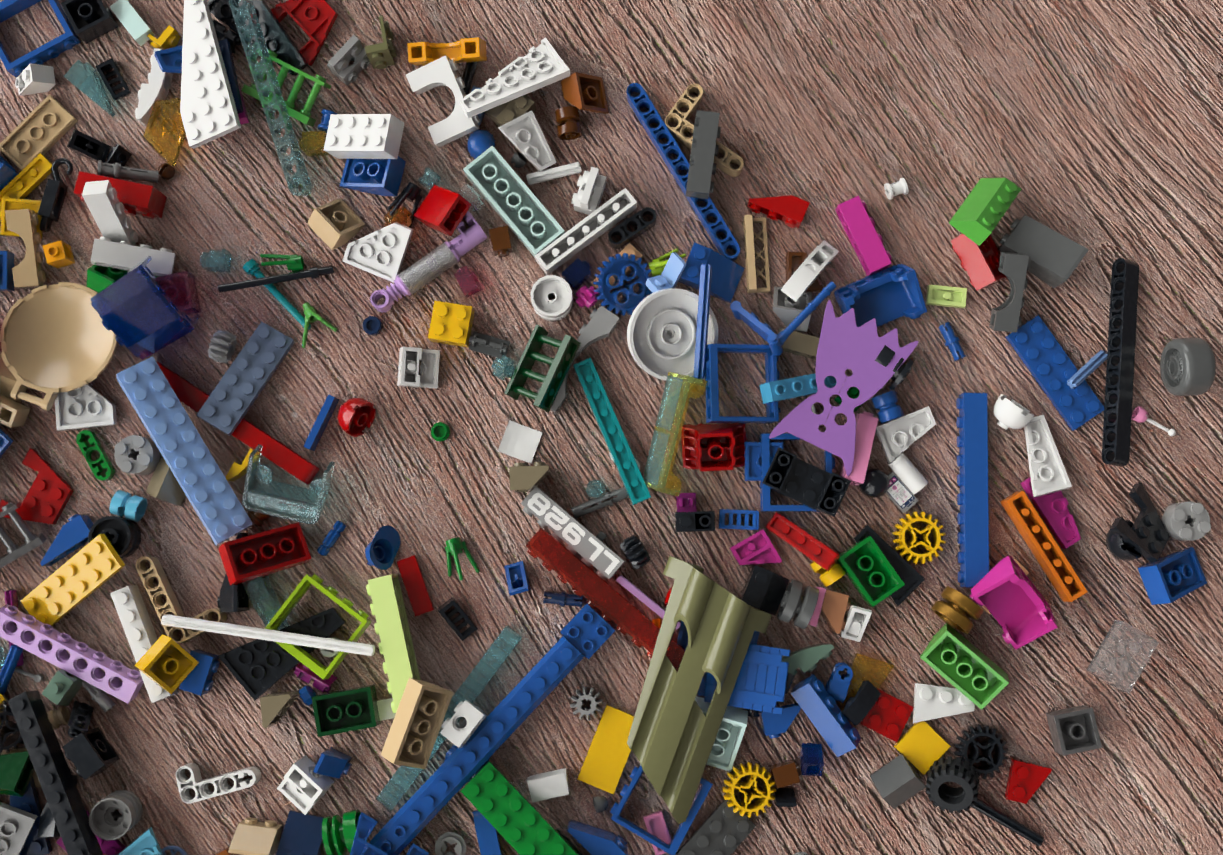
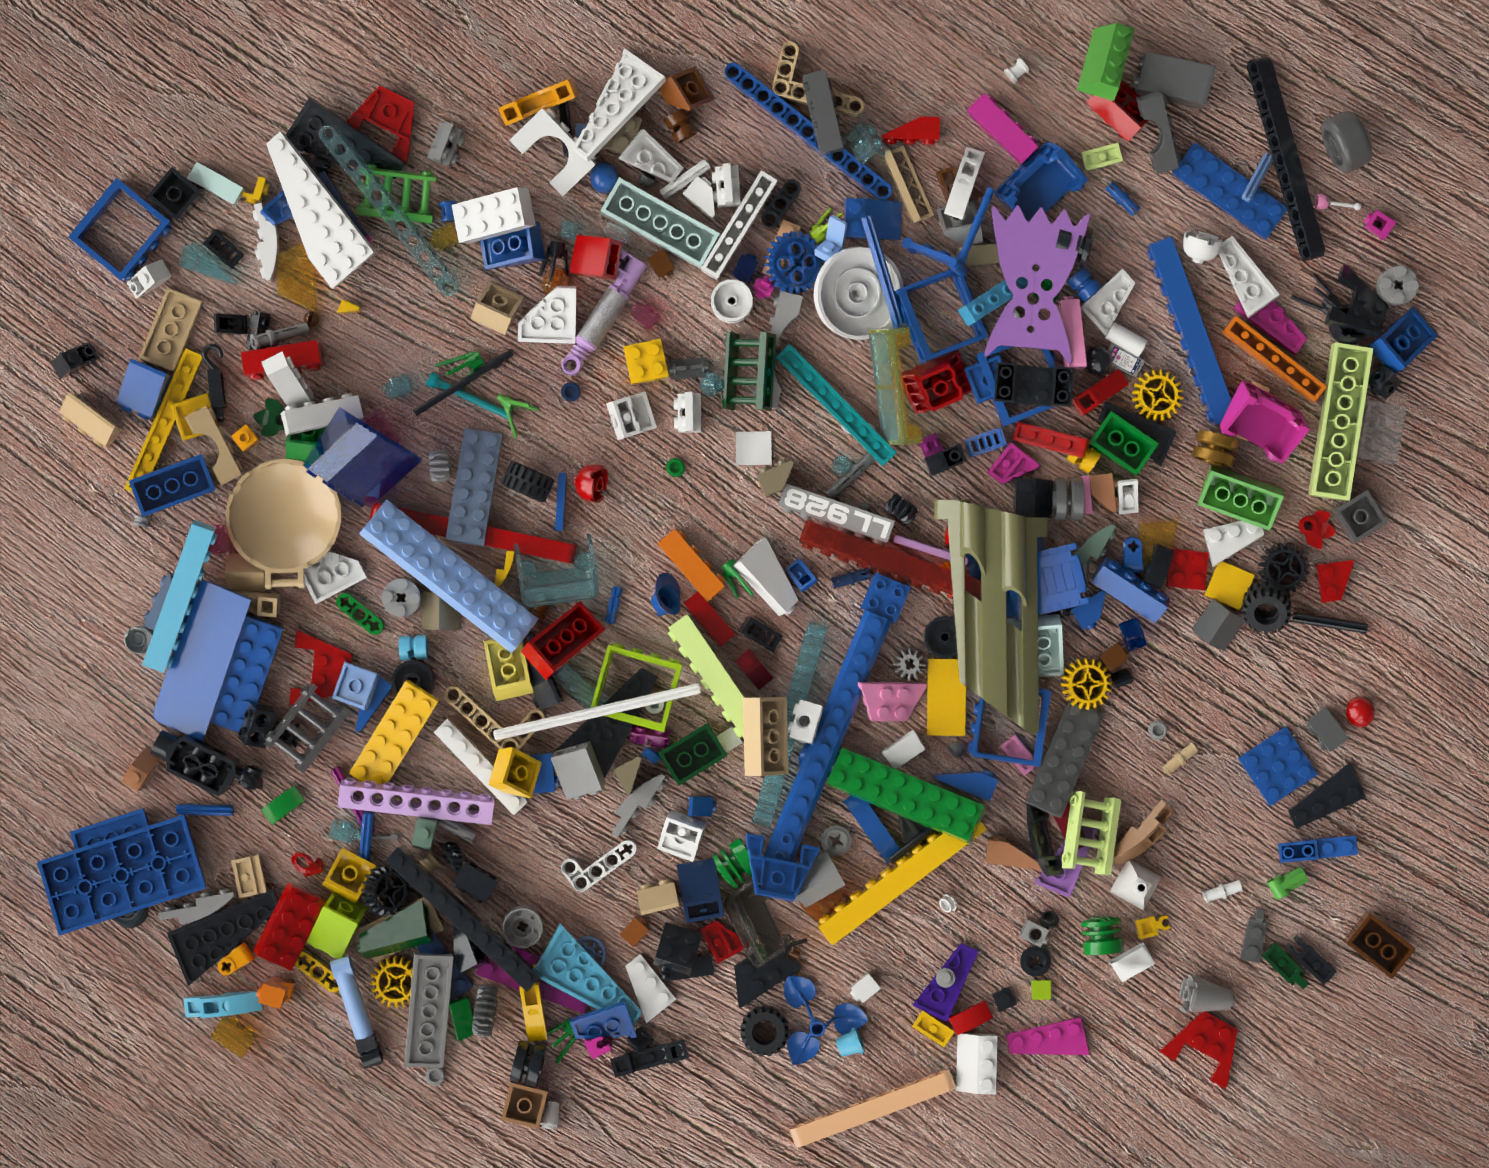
camera: 25 degrees left, 5 degrees up
(57, 521) = (356, 686): none -> medium blue tile
(86, 245) = (269, 418): none -> dark green plate
(200, 172) = (347, 307): none -> yellow slope
(203, 563) = (507, 671): none -> light yellow slope
(231, 684) = (578, 770): none -> light grey brick
(280, 733) = (640, 796): none -> light grey slope
(295, 391) = (527, 481): none -> black tyre
(382, 54) = (475, 129): olive bracket -> none
(418, 529) = (691, 565): none -> orange brick
(437, 650) = (754, 669): none -> dark red slope
(465, 392) = (692, 420): none -> white brick
(483, 568) = (767, 577): none -> white slope
(555, 732) = (891, 699): none -> bright pink wing
(562, 192) = (701, 196): none -> white slope
(620, 683) = (932, 637): none -> black wheel
(731, 199) = (864, 142): none -> clear light blue bracket
(864, 514) = (1100, 392): none -> red slope
(1027, 725) = (1319, 529): none -> red plate
(1087, 631) = (1340, 422): none -> yellowish green brick
(1113, 512) = (1328, 302): none -> black plant
(1142, 608) = (1383, 382): none -> black brick
(1193, 458) = (1385, 222): none -> dark pink brick

